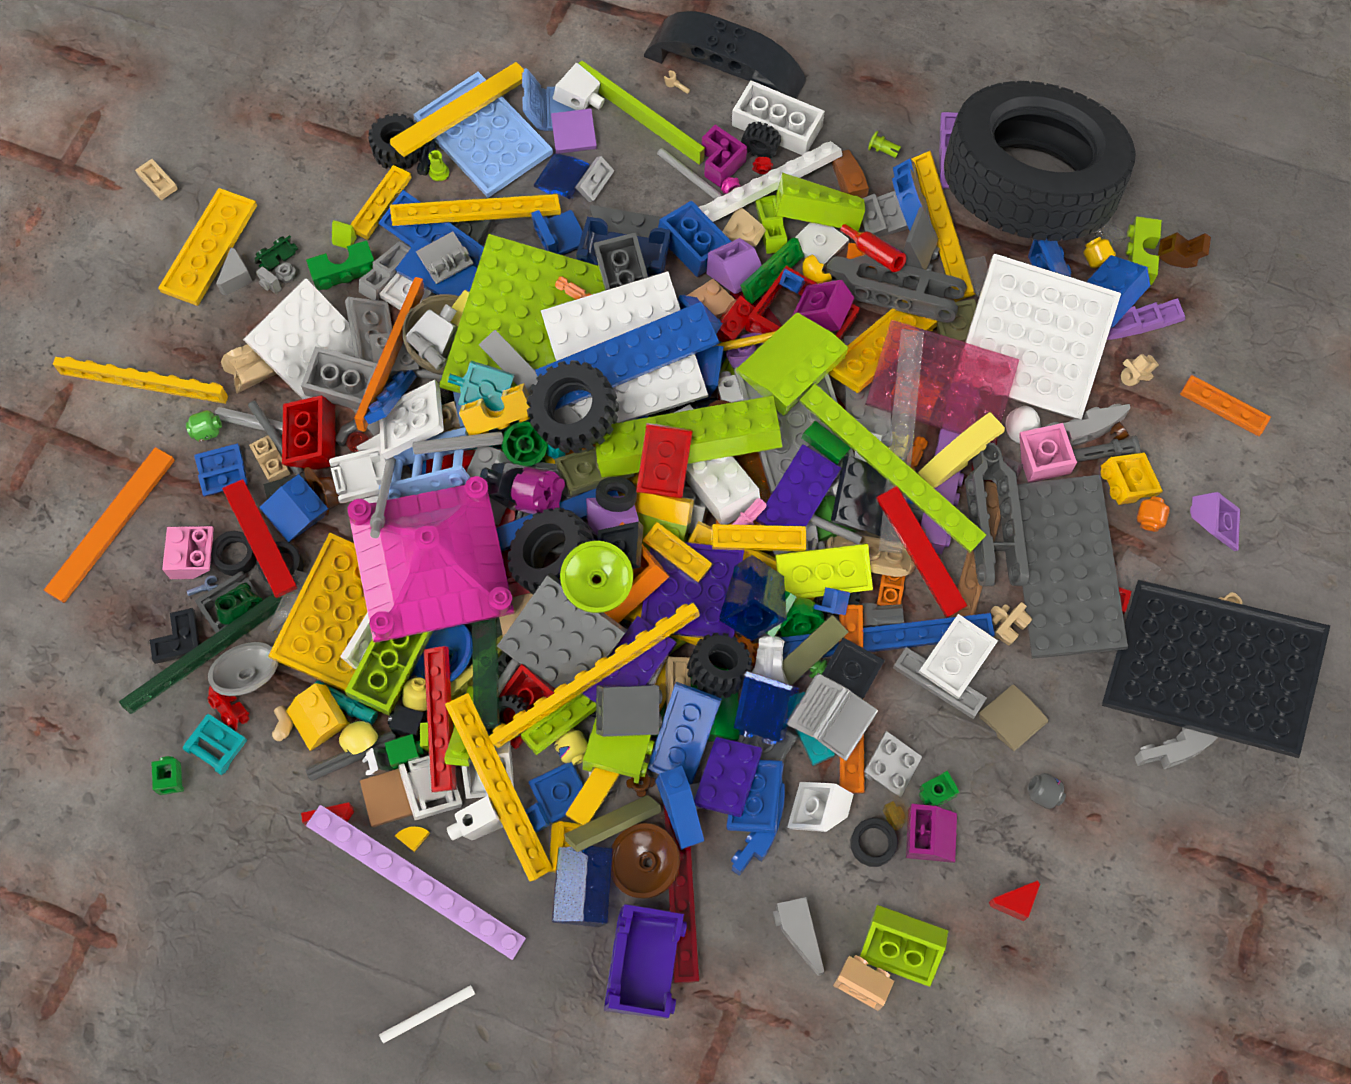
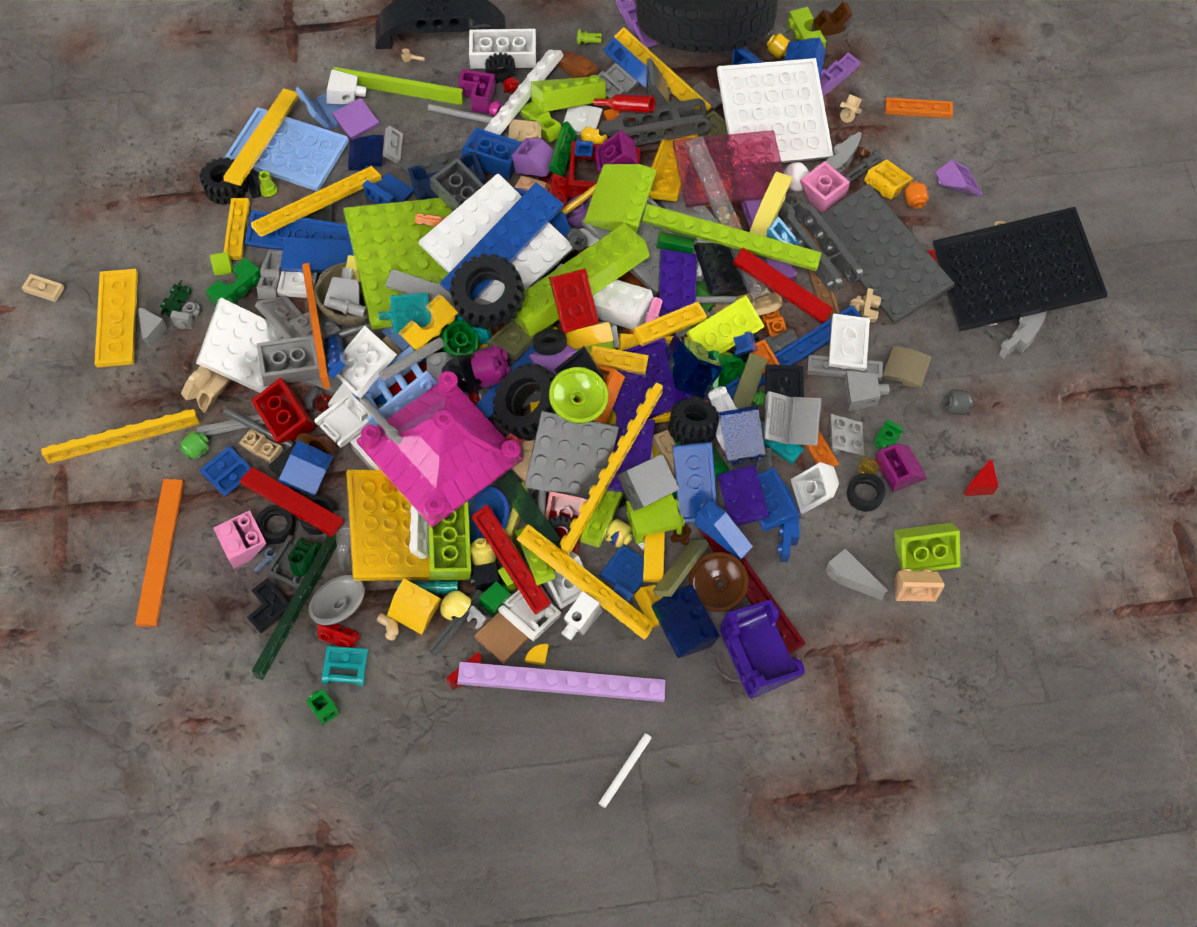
camera: 30 degrees left, 5 degrees down
(444, 257) = (315, 242): light grey hinge -> none
(720, 384) = (573, 235): none -> dark grey wheel
(944, 720) = (863, 390): none -> light grey torso
(953, 489) = (780, 232): none -> dark azure slope

